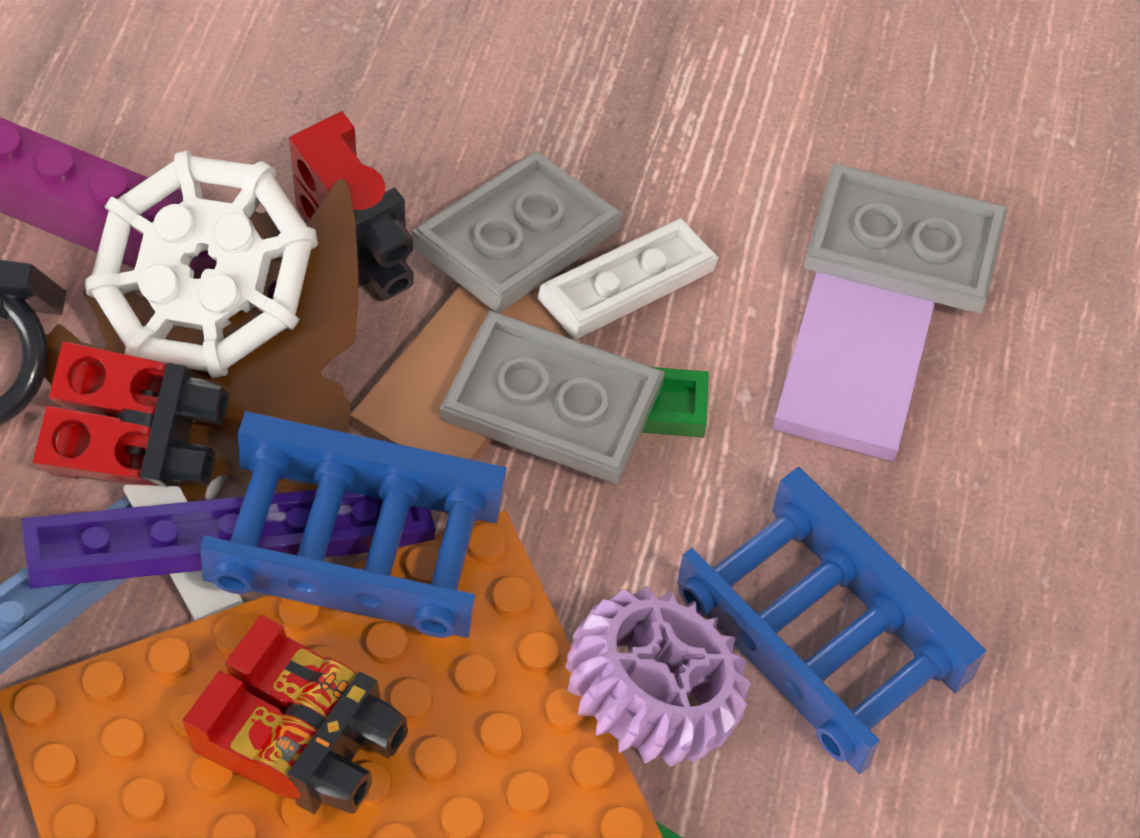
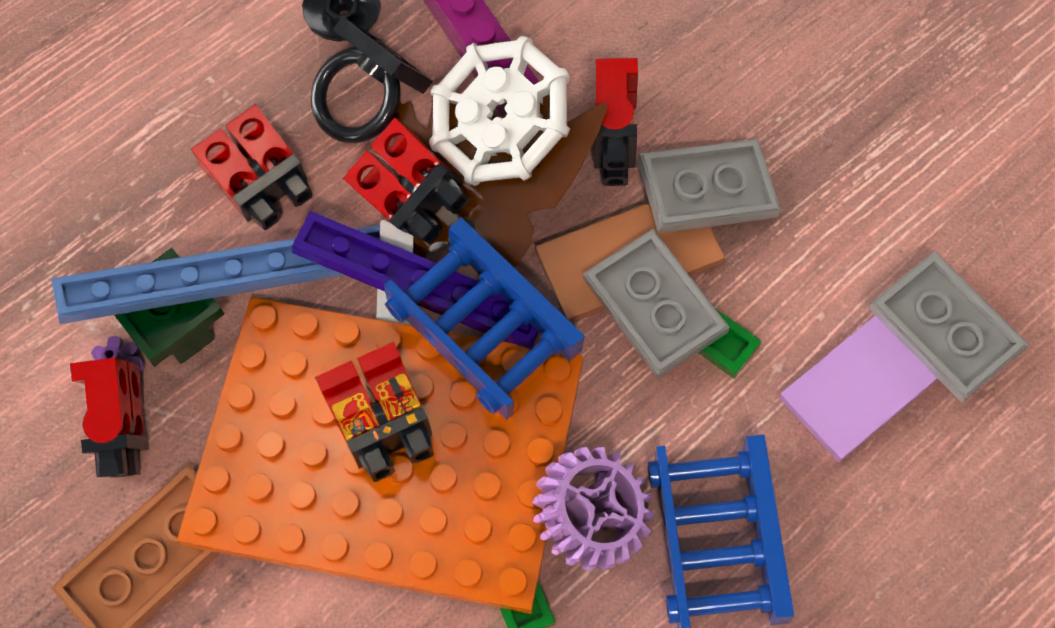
camera: 45 degrees right, 10 degrees up
(627, 278) = (754, 253): white tile -> none

